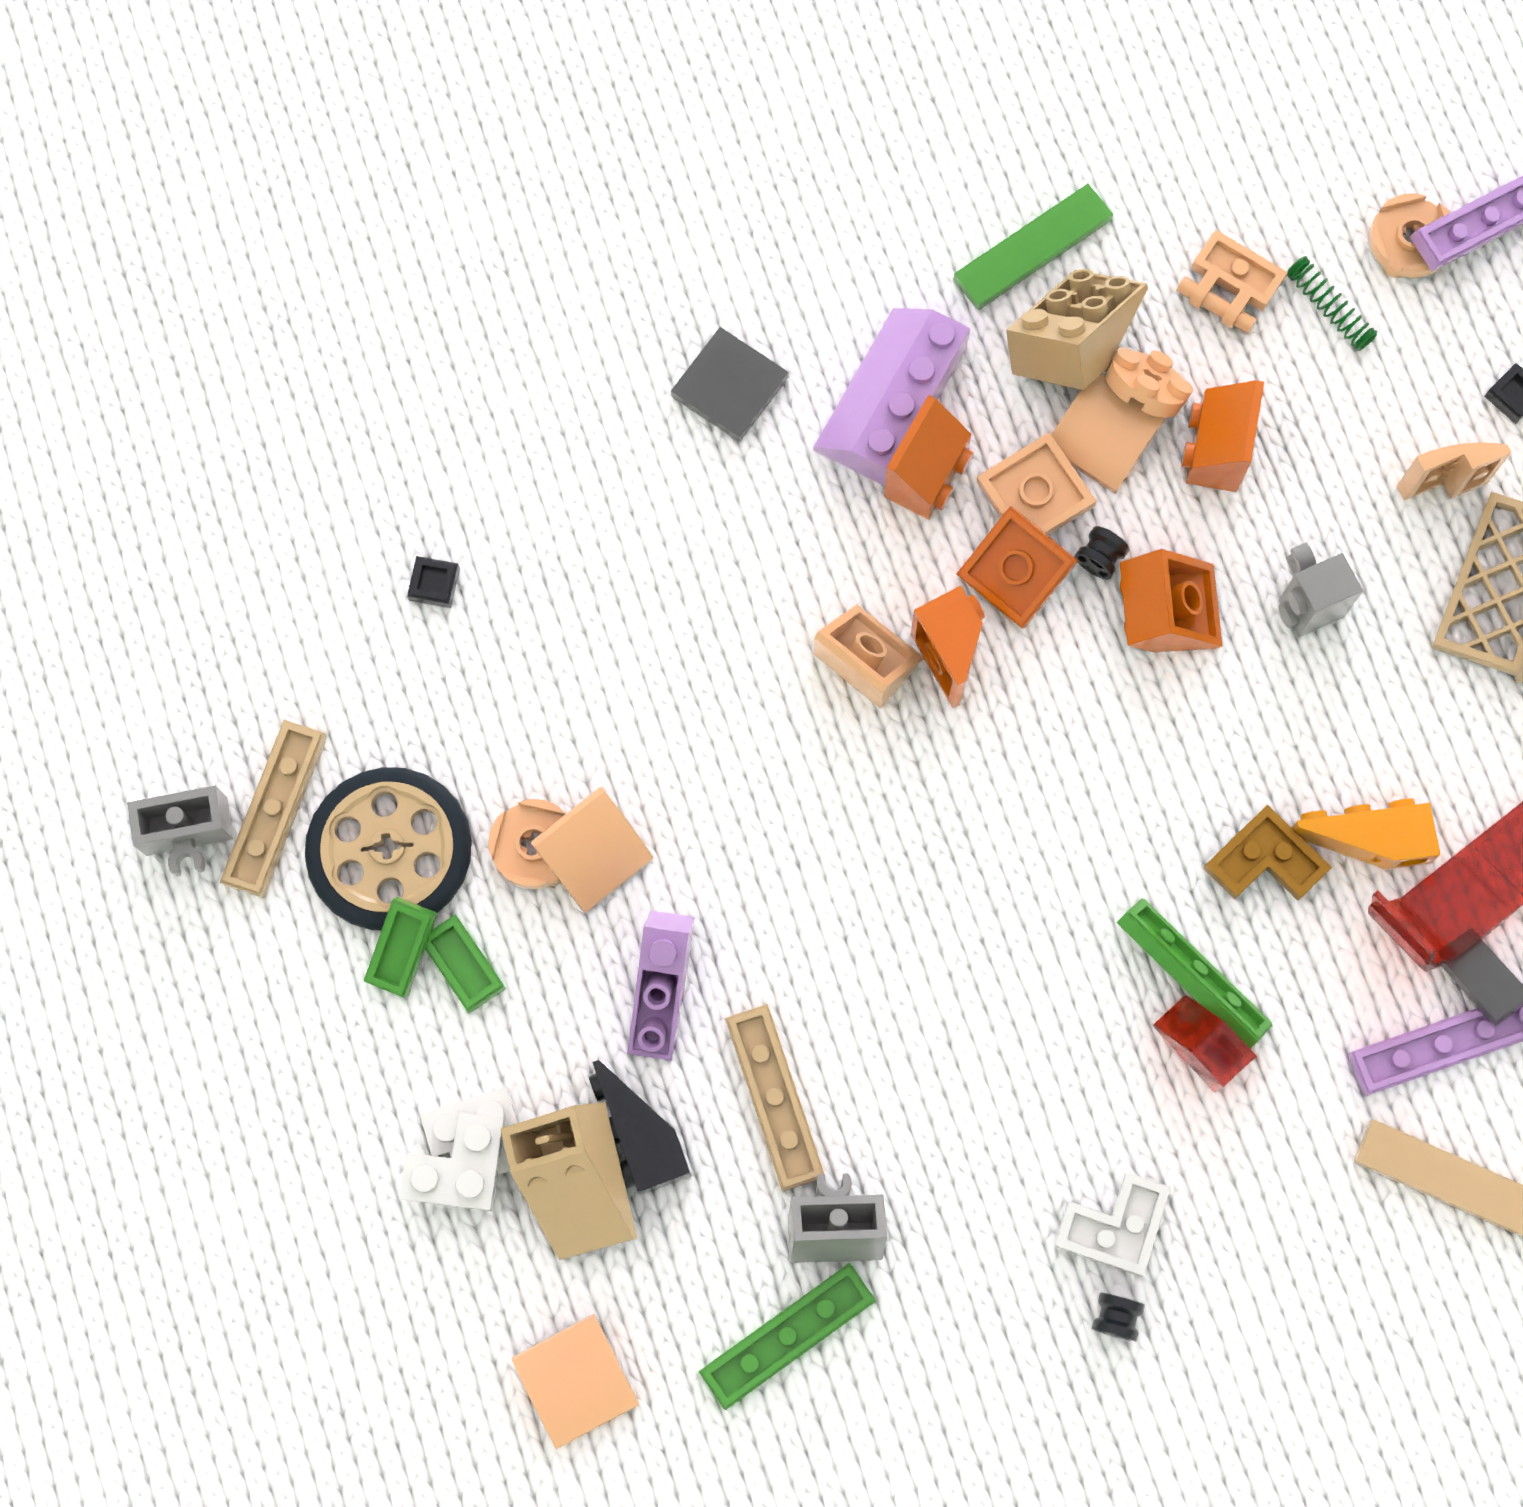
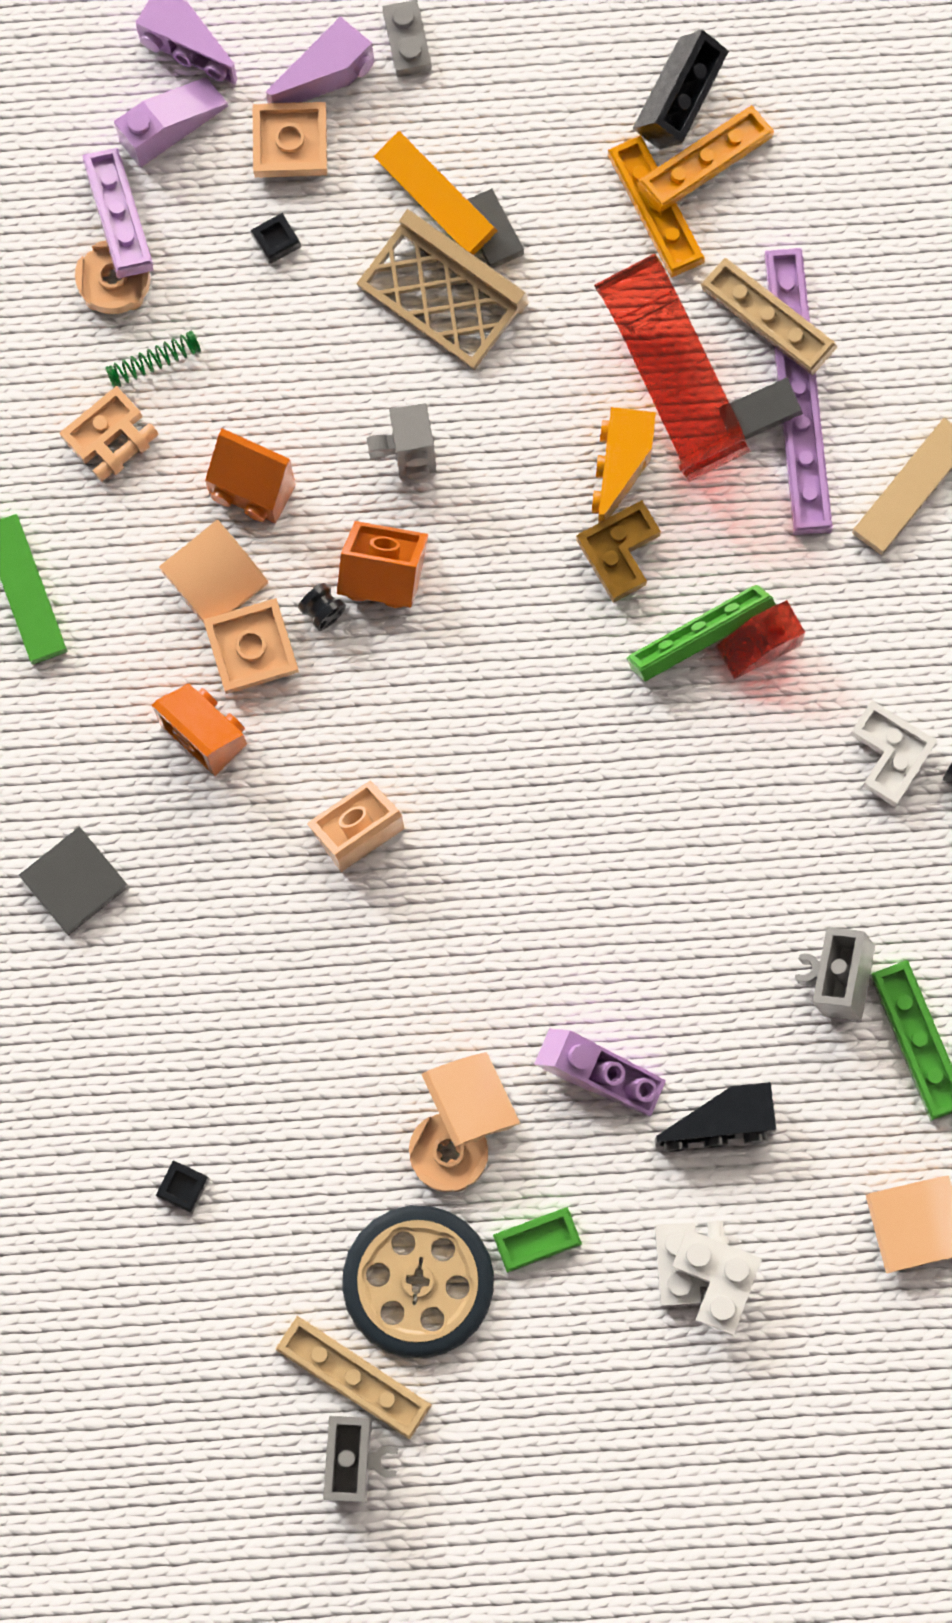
camera: 75 degrees left, 0 degrees up
(400, 947) = (511, 1288): bright green tile -> none
(571, 1178) = (751, 1182): tan slope -> none
(774, 1097) = (718, 1001): tan tile -> none
(903, 366) = (125, 742): lavender slope -> none
(948, 637) = (372, 749): orange slope -> none
(1017, 567) = (315, 679): orange tile -> none
(1074, 329) = (116, 571): tan slope -> none
(1148, 381) = (182, 525): light nougat plate -> none
(1455, 466) = (334, 304): light nougat slope -> none

